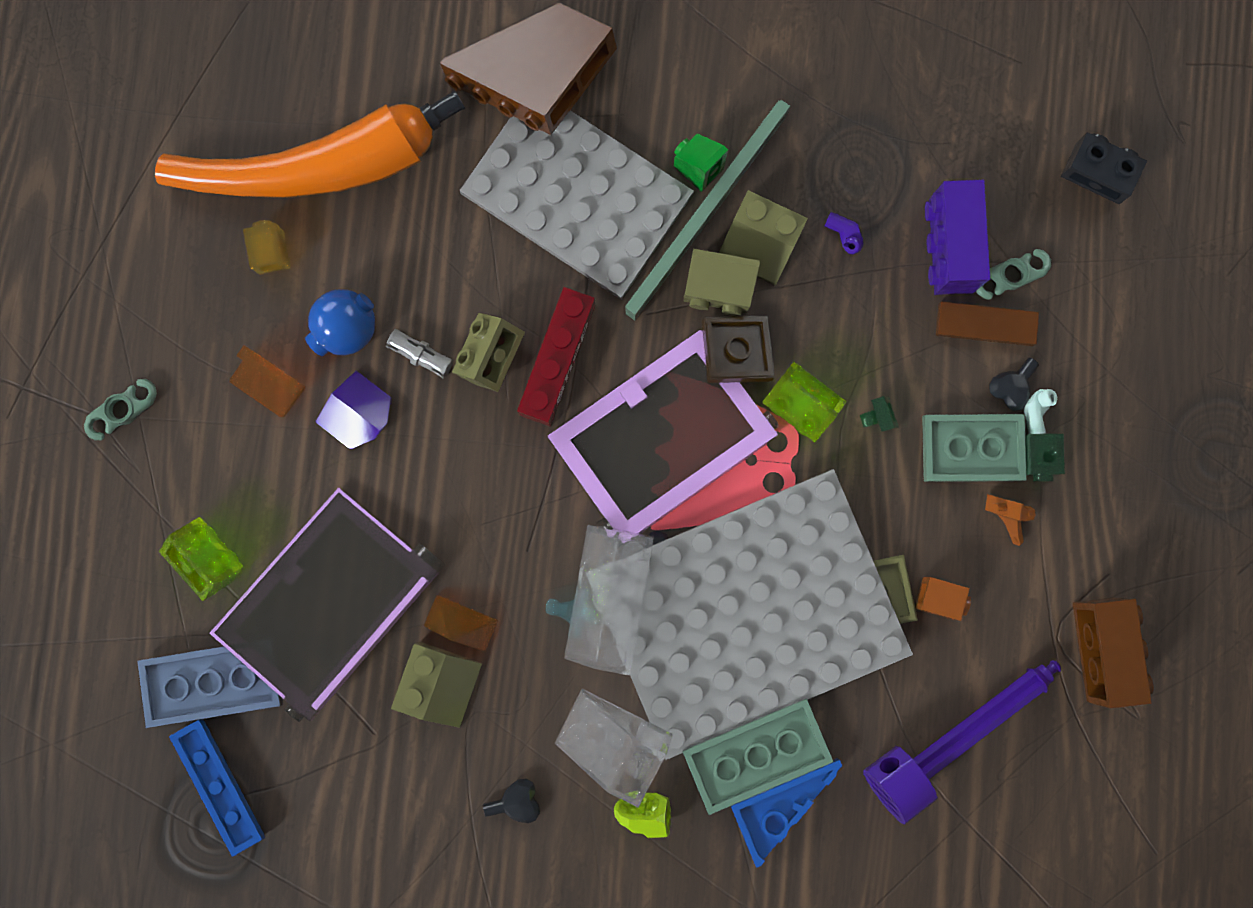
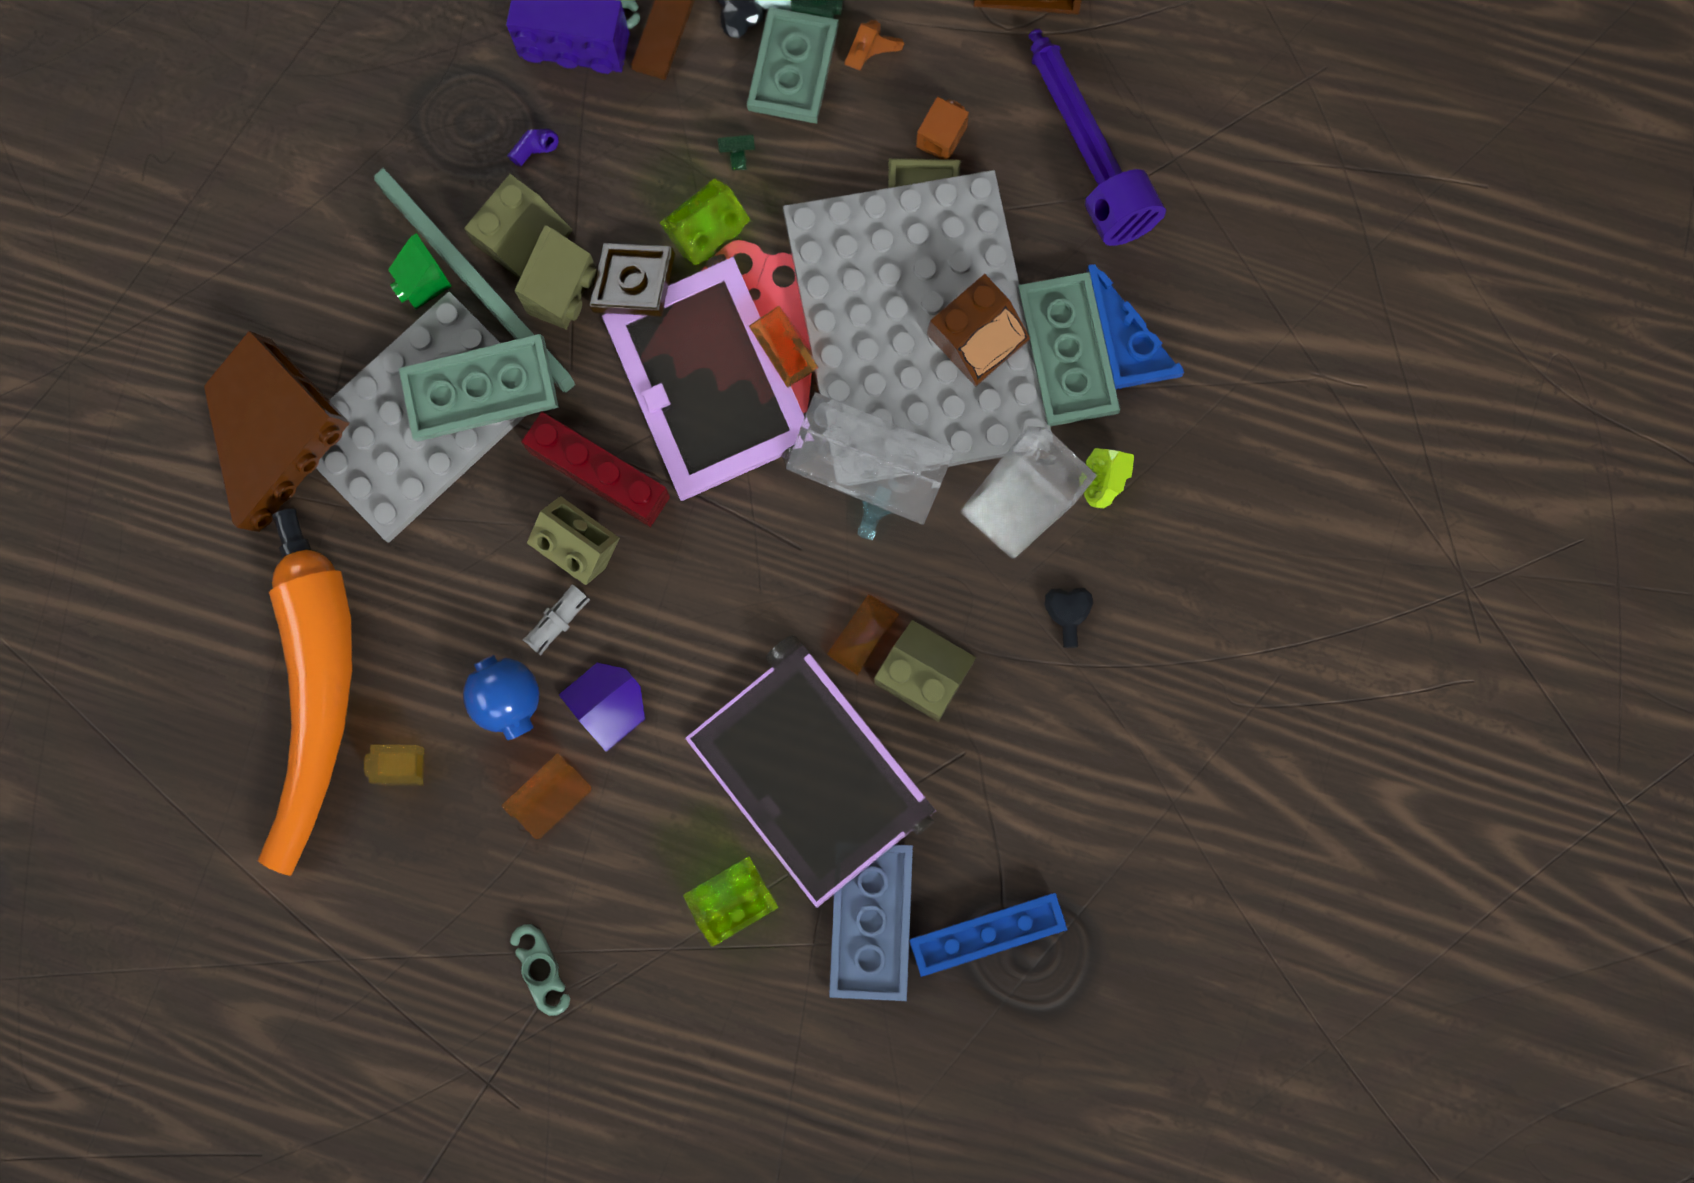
camera: 75 degrees left, 5 degrees down
(604, 238) = (478, 387): none -> sand green plate
(701, 499) = (784, 346): none -> clear orange slope
(751, 673) = (978, 330): none -> reddish brown slope

